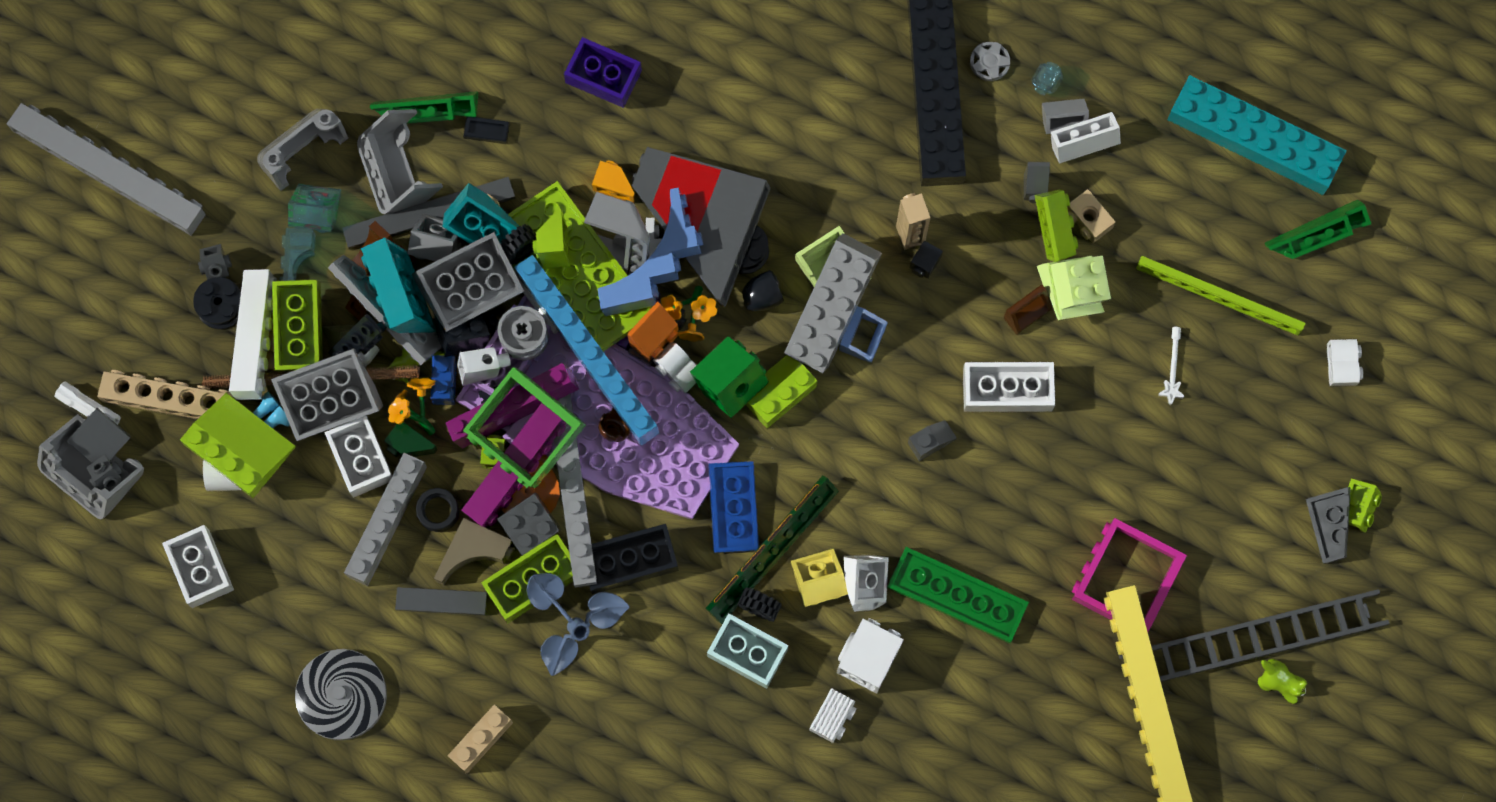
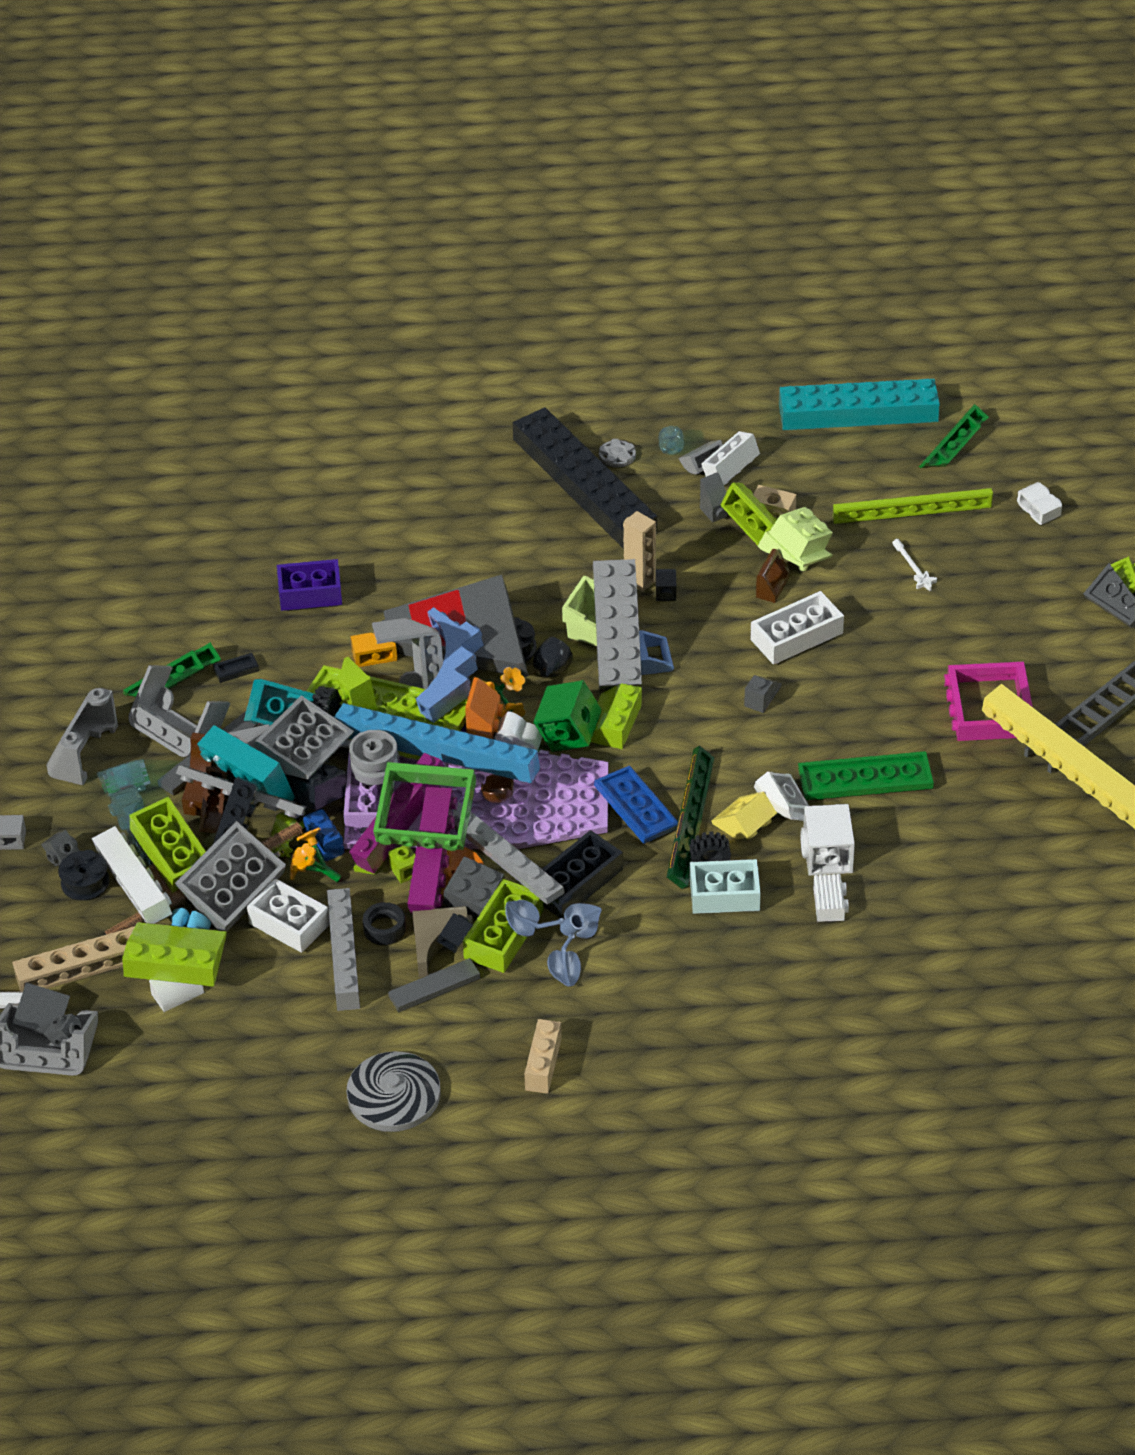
camera: 30 degrees left, 30 degrees down
(198, 566) = (198, 1056): white brick -> none
(406, 440) = (318, 884): dark green slope -> none
(480, 567) = (454, 932): none -> black brick
(481, 365) = (352, 793): white torso -> none

